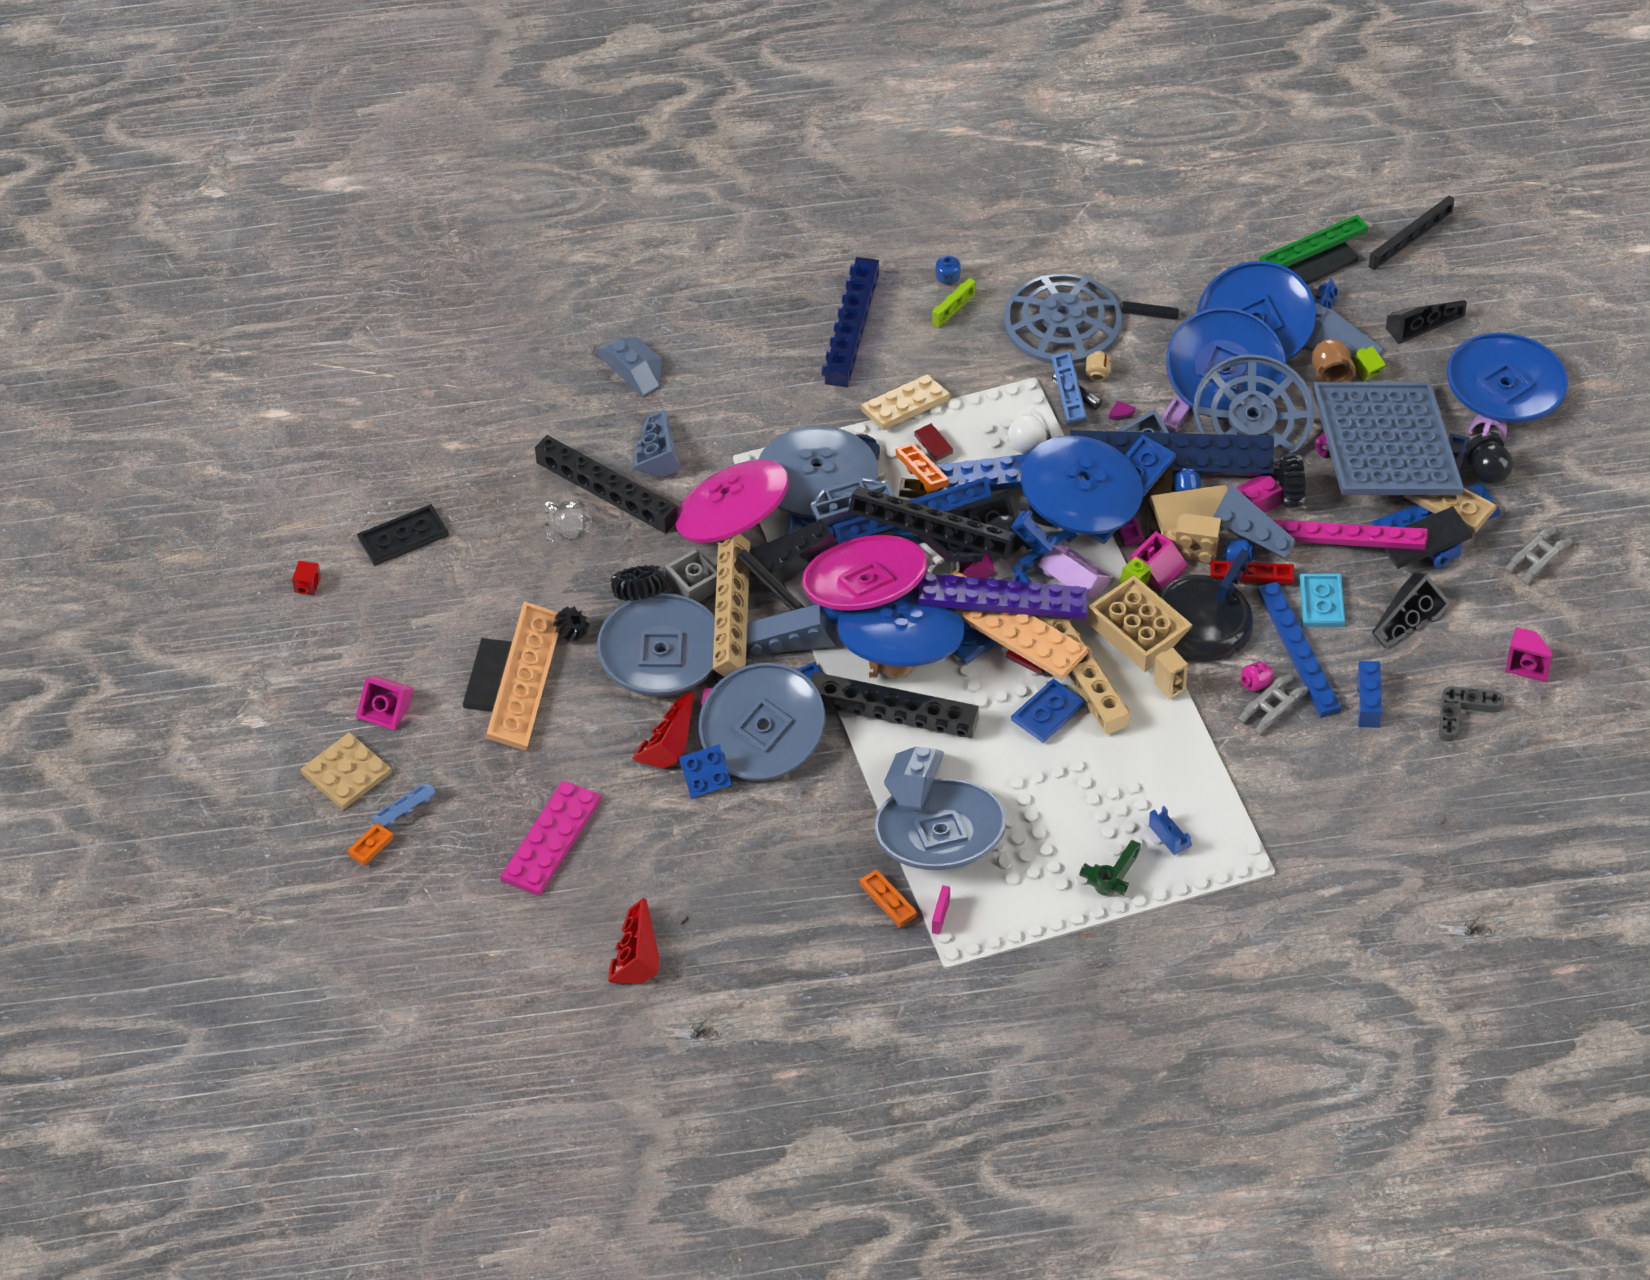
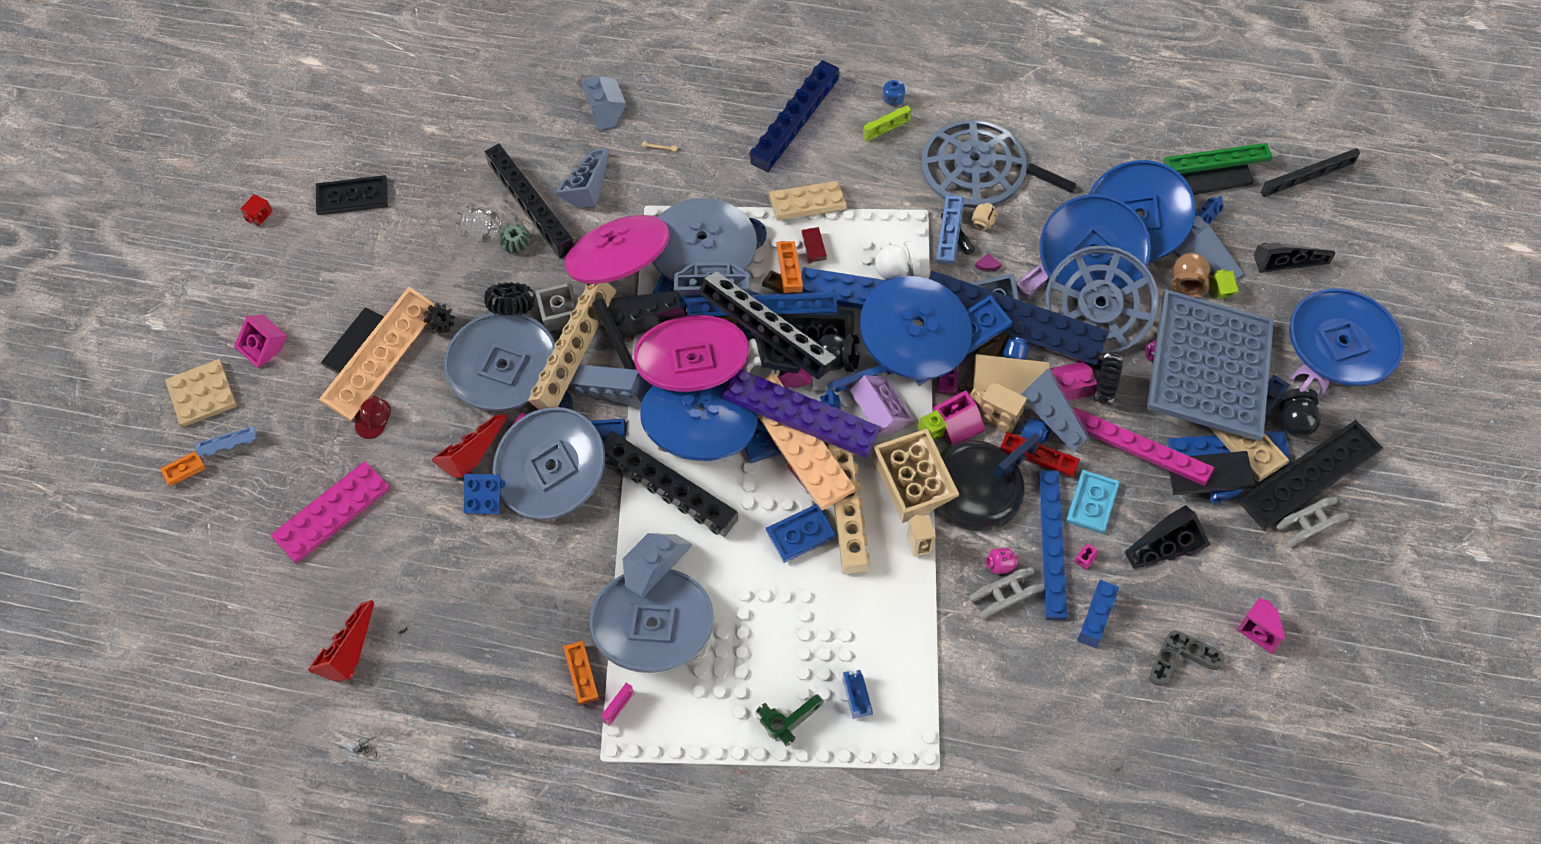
camera: 20 degrees right, 10 degrees up
(546, 739) = (372, 418): none -> dark red piece
(609, 525) = (514, 238): none -> sand green gear
(734, 392) = (673, 148): none -> tan hinge
(1033, 534) = (851, 362): blue hinge -> none
(1336, 642) = (1086, 563): none -> dark pink piece
(1521, 514) = (1310, 475): none -> black plate

